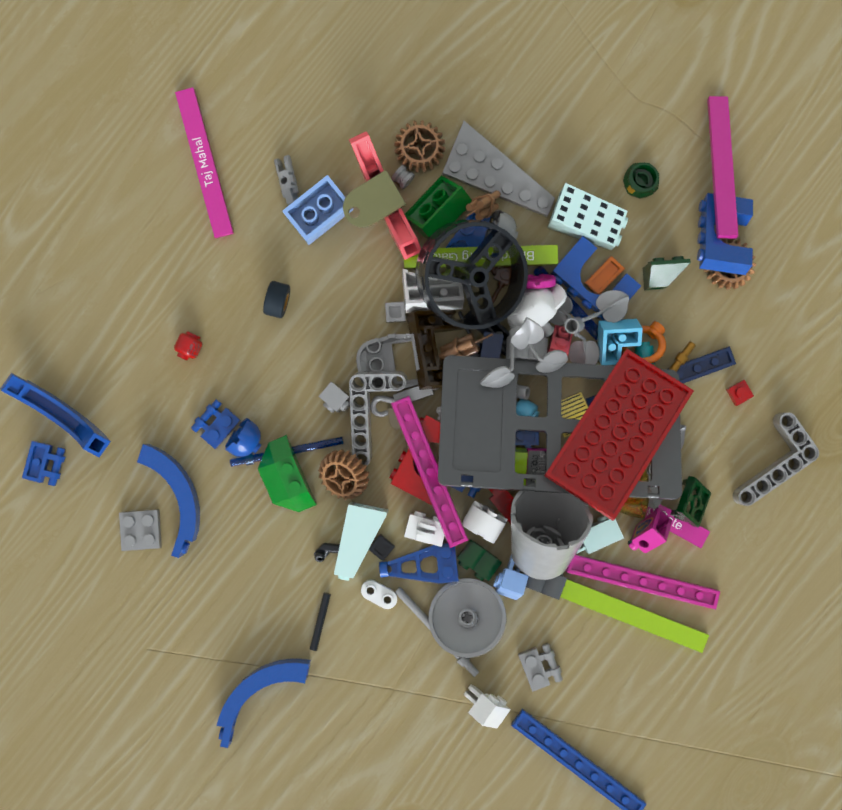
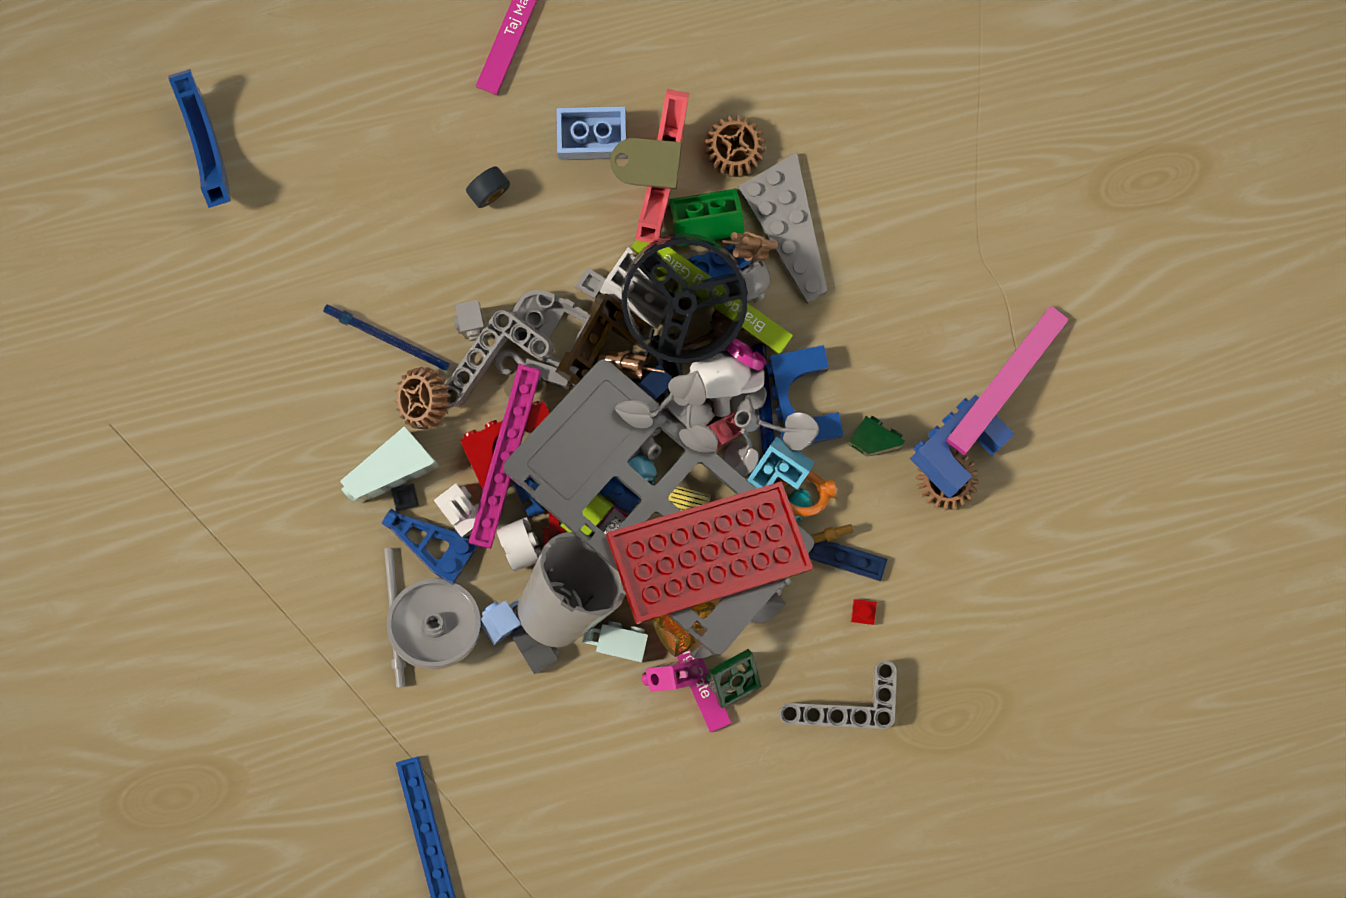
camera: 35 degrees right, 5 degrees down
(38, 461) = (147, 170): blue plate -> none
(140, 530) = (191, 306): light grey plate -> none
(183, 490) = (260, 302): blue arch -> none
(188, 345) = (371, 168): red head -> none
(220, 428) = (343, 267): blue plate -> none
(244, 440) = (355, 295): blue cylinder -> none
(275, 672) = (144, 539): blue arch -> none
(285, 477) = (365, 359): green wedge -> none
(287, 179) = (586, 82): light grey hinge -> none
(320, 621) = (292, 522): black bar -> none
(324, 550) = (347, 458): black arm -> none
(379, 594) = (368, 539): white plate -> none
(403, 177) = (697, 162): light grey wheel -> none
(479, 560) = (487, 579): dark green brick -> none
(487, 708) = (385, 724): white brick -> none
(534, 669) = (460, 725): light grey plate -> none
(588, 216) = (843, 332): light aqua slope -> none
(604, 276) = (818, 400): orange tile -> none
(634, 615) = (595, 747): lime tile -> none
(641, 180) = (925, 336): dark green hat -> none
(644, 581) = (629, 722): dark pink tile -> none

